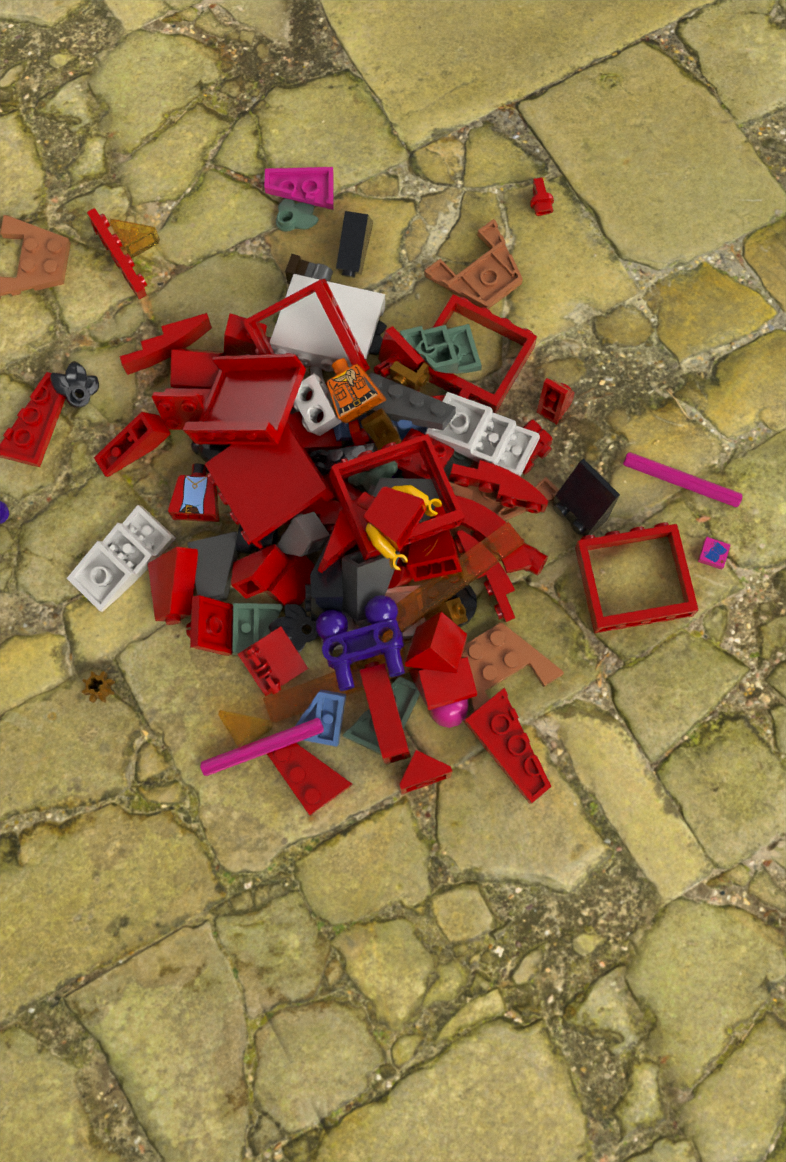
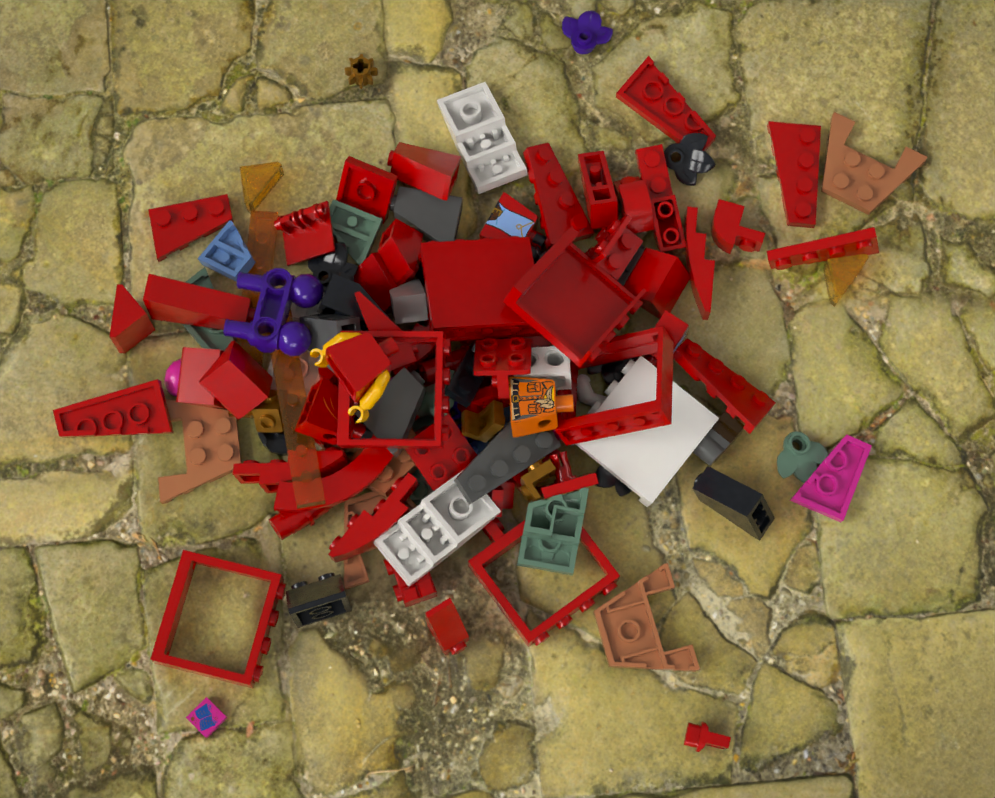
camera: 110 degrees right, 0 degrees up
(40, 308) = (797, 164): none -> red wing
(123, 394) = (667, 221): none -> red slope
(125, 334) = (727, 232): none -> red brick
(130, 405) = (635, 202): none -> red brick
(163, 464) = (554, 196): none -> red wing
(261, 747) = (229, 191): dark pink axle -> none
(263, 277) = (720, 381): none -> red wing
(326, 429) = (501, 360): none -> red bracket
(683, 479) = (300, 726): dark pink axle -> none

